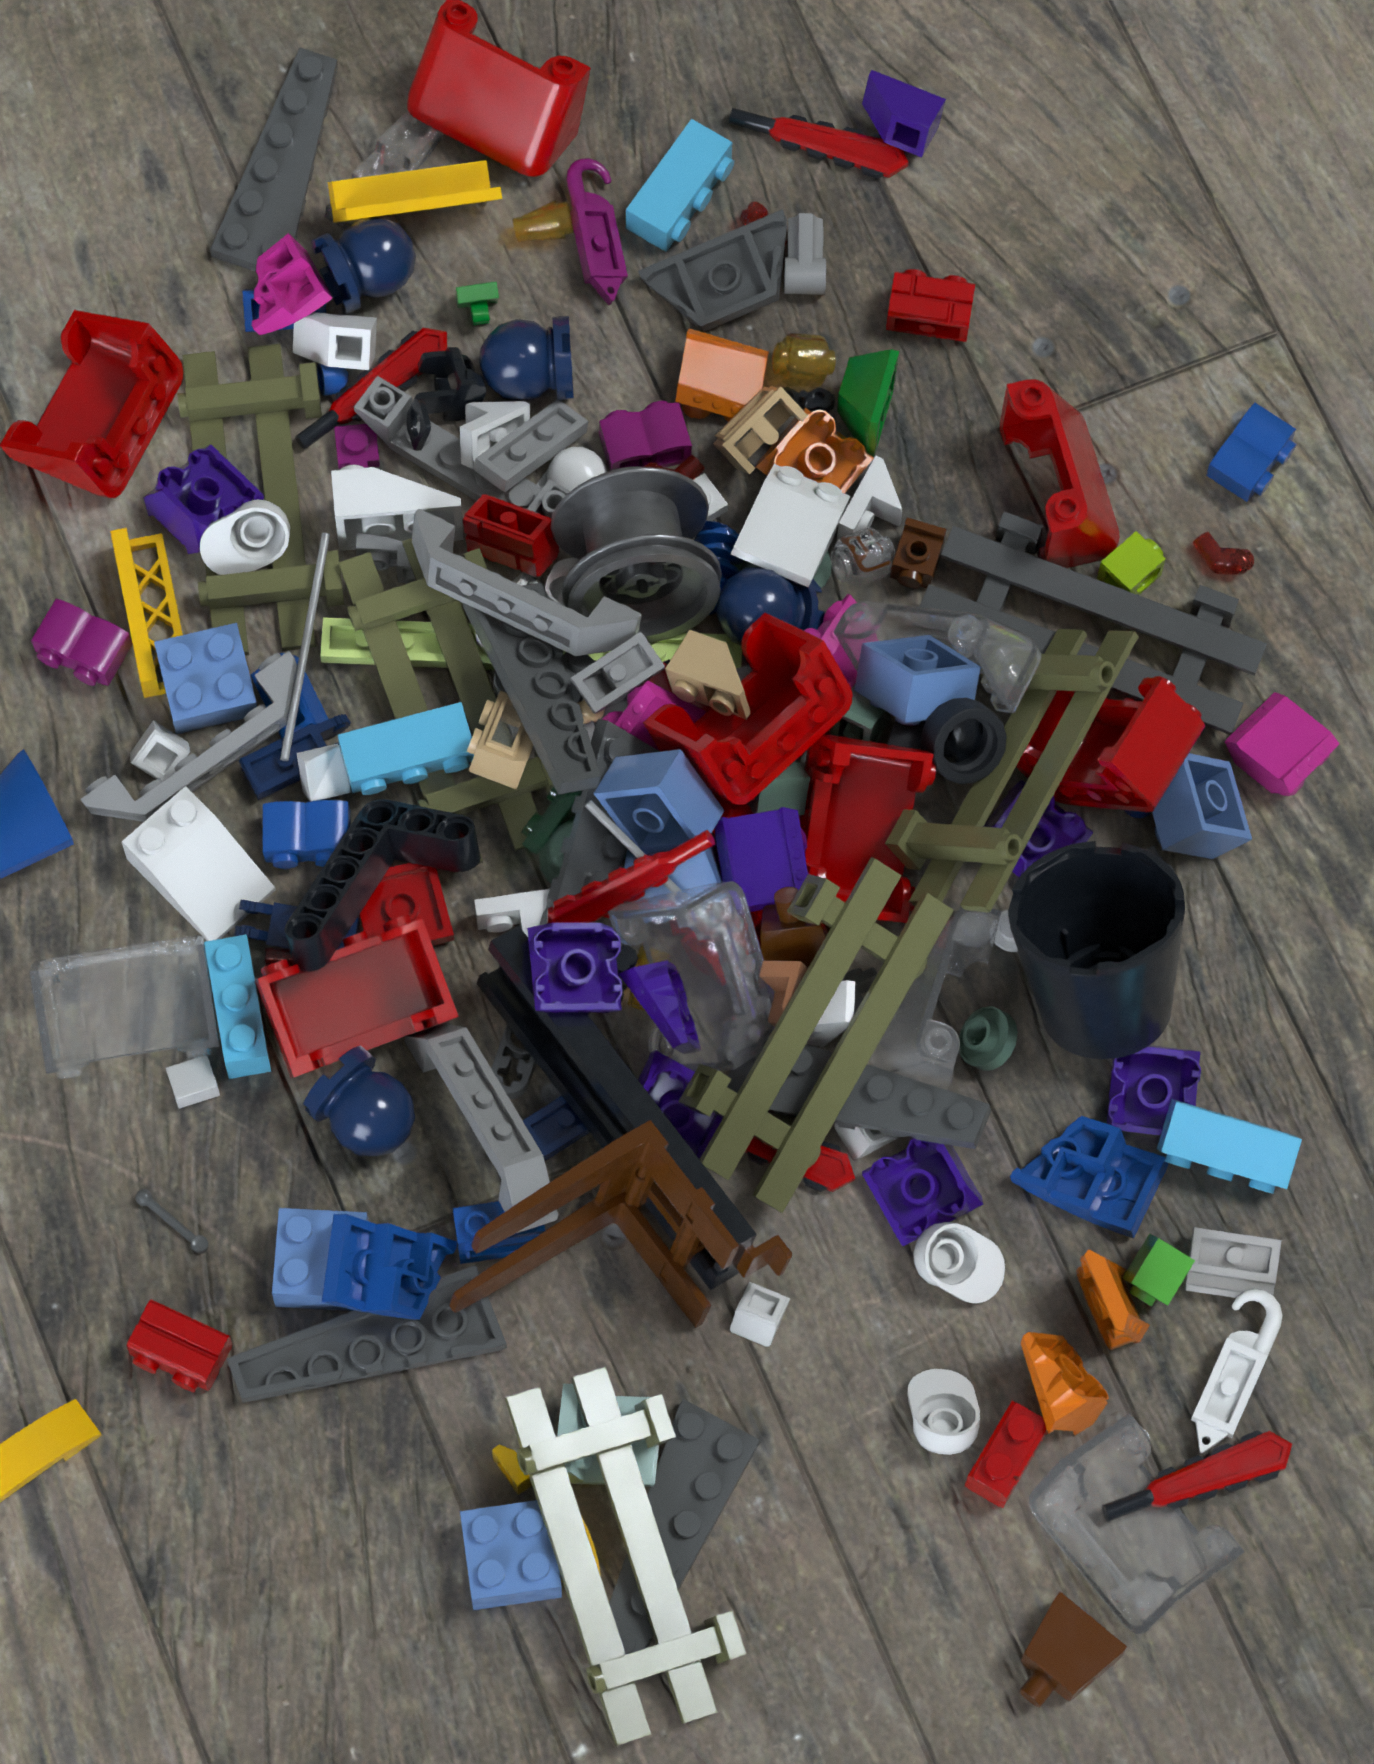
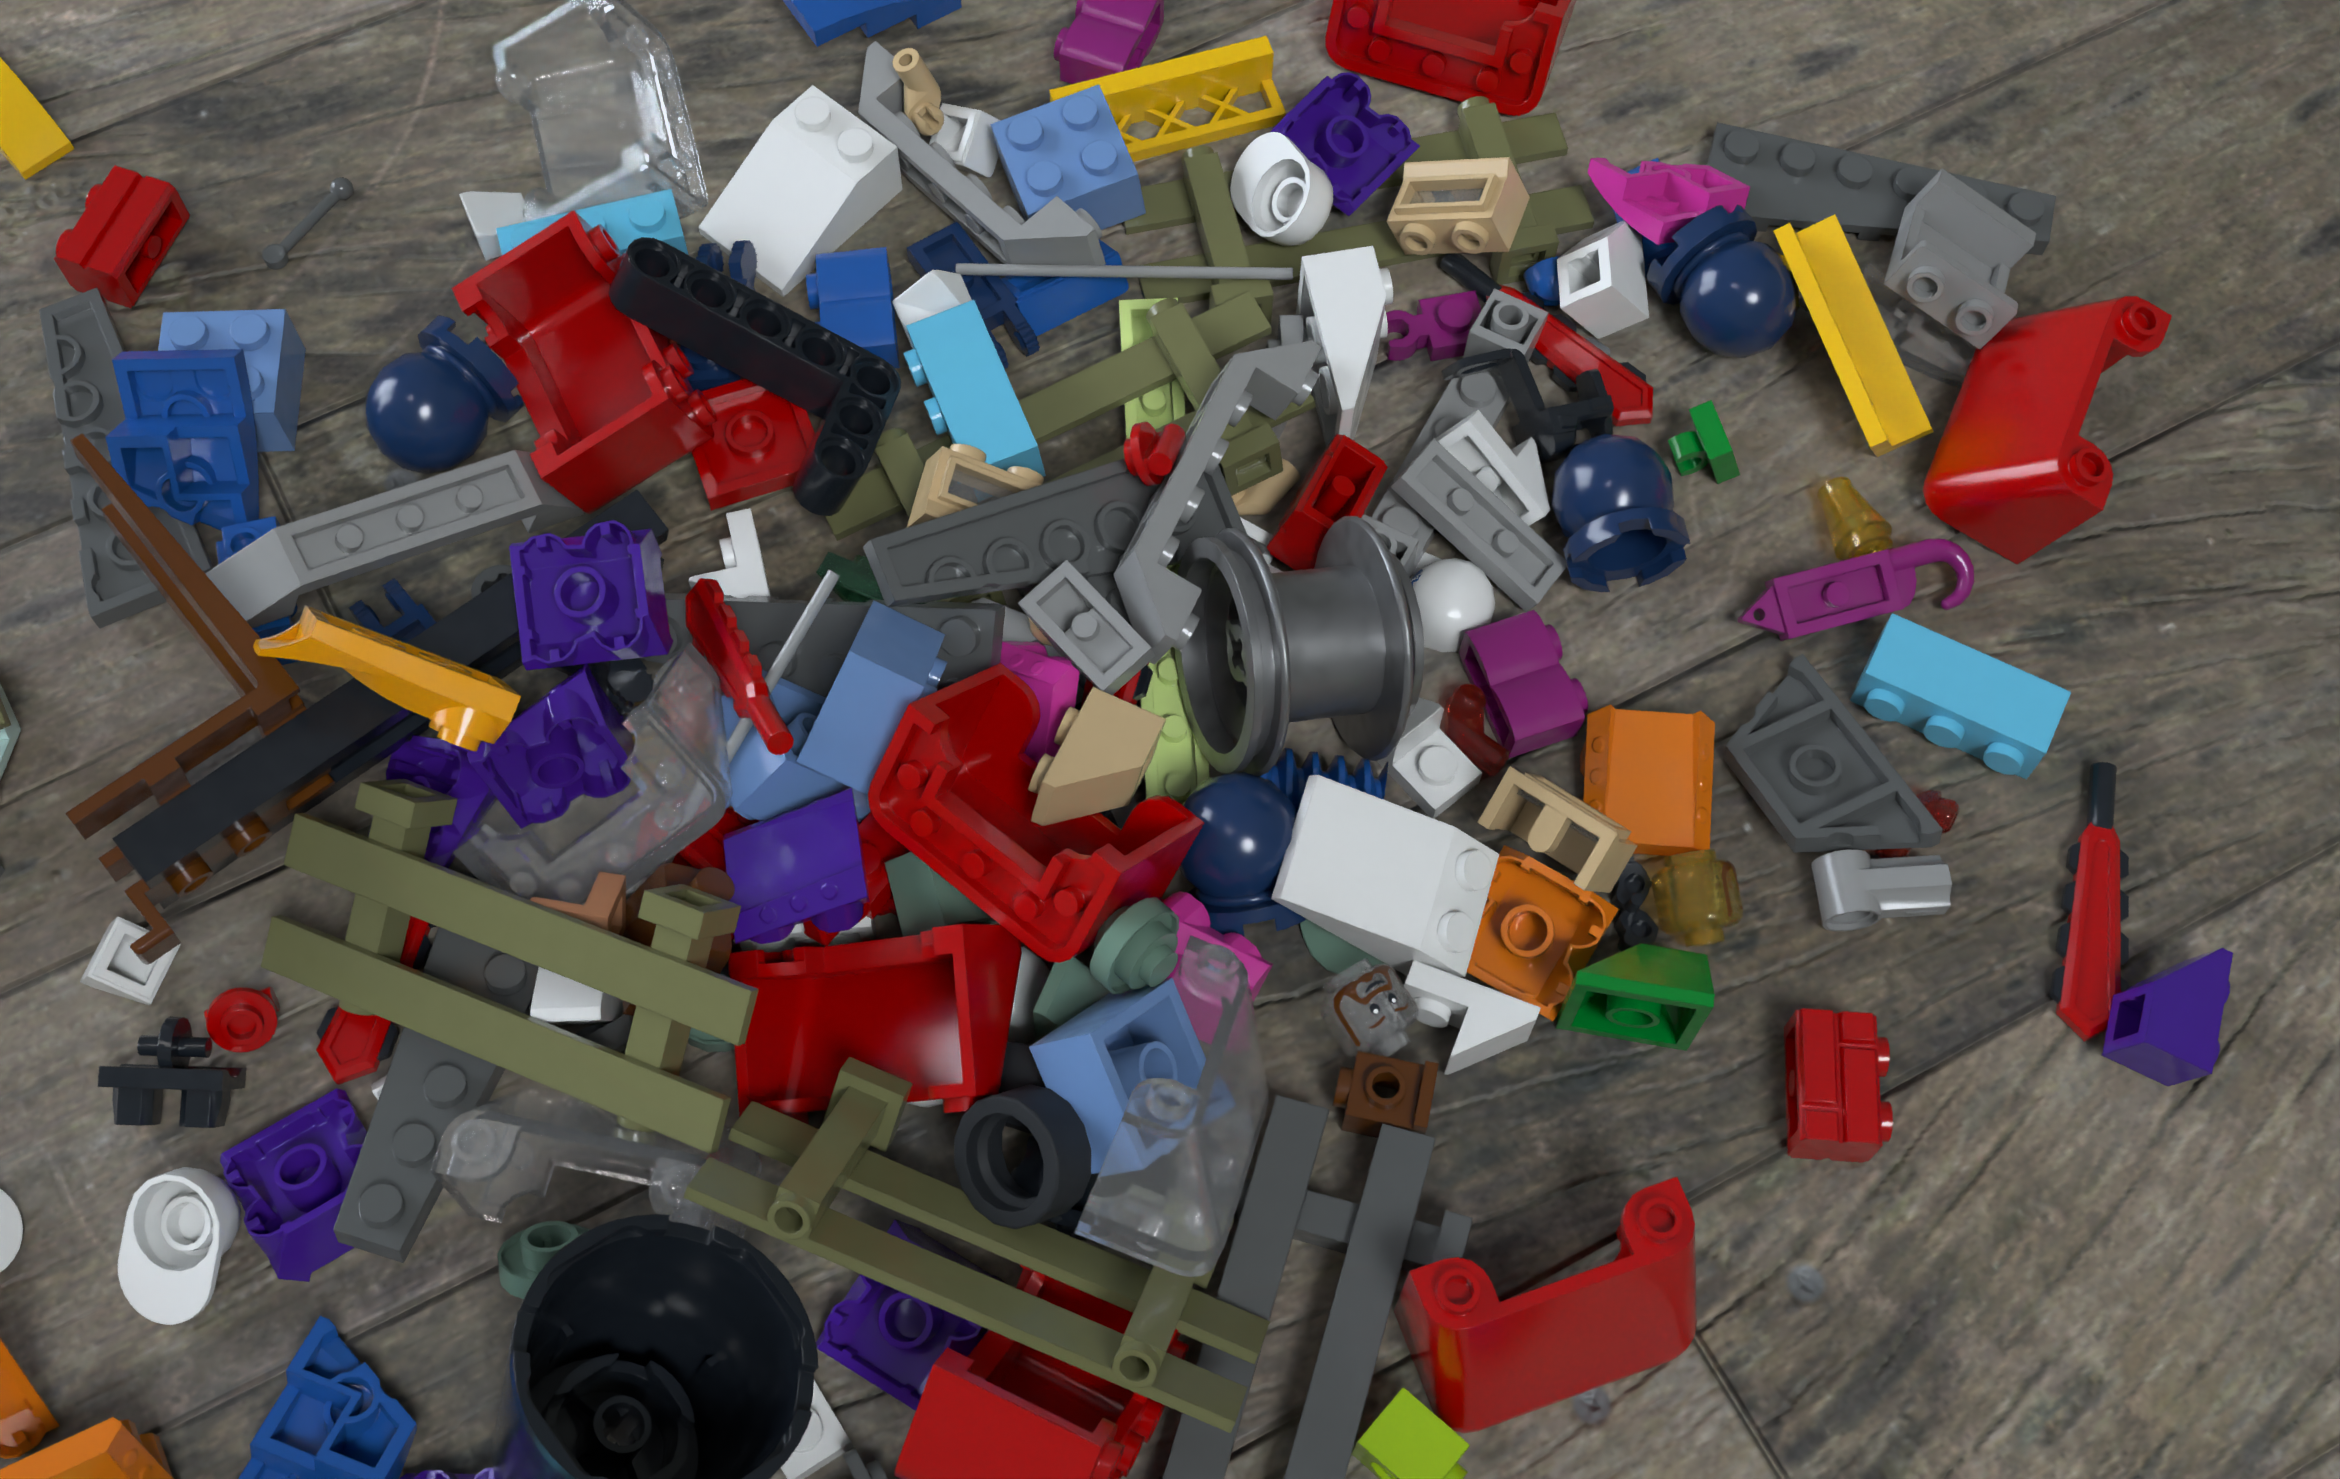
camera: 85 degrees right, 5 degrees down
(133, 774) = (921, 92): none -> tan arm
(282, 422) = (1458, 206): none -> tan window
(360, 120) = (1957, 258): none -> light grey panel
(495, 615) = (1152, 452): none -> red plate
(638, 1057) = (457, 699): none -> light orange slope
(808, 1235) = (242, 1018): none -> red plate
(844, 1270) = (141, 1086): none -> black hips
(850, 655) = (1136, 947): none -> sand green plate

